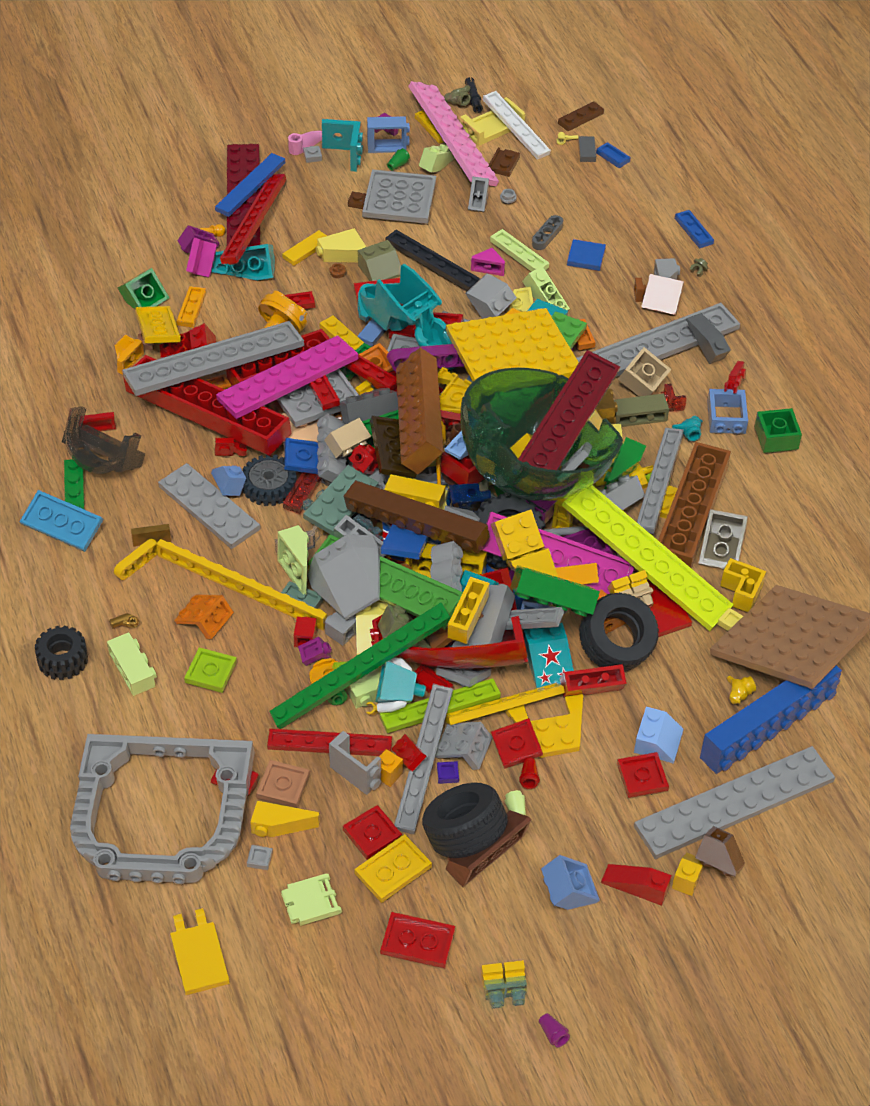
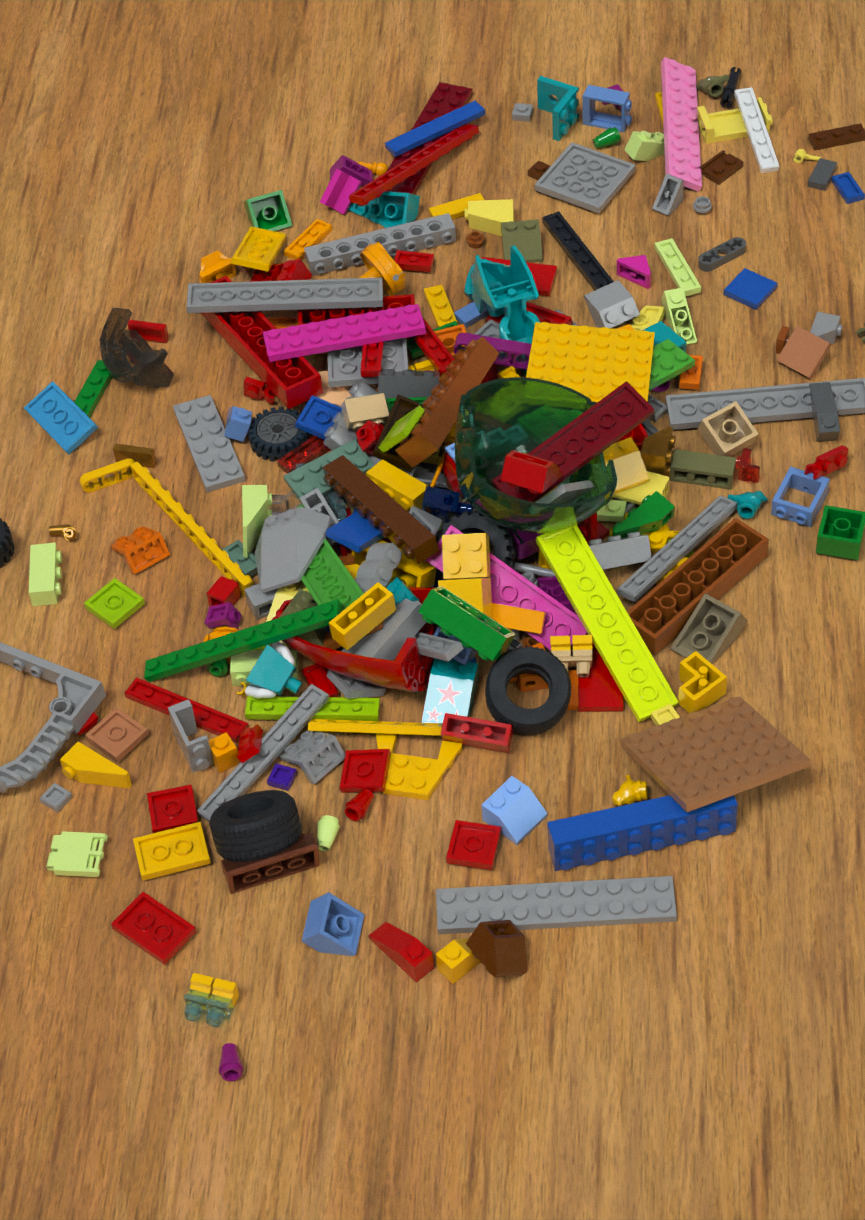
camera: 30 degrees right, 0 degrees up
(246, 301) = (404, 237): none -> light grey brick
(297, 142) = (512, 95): bright pink piece -> none
(400, 443) = (401, 429): none -> lime tile
(557, 446) = (529, 472): none -> red slope

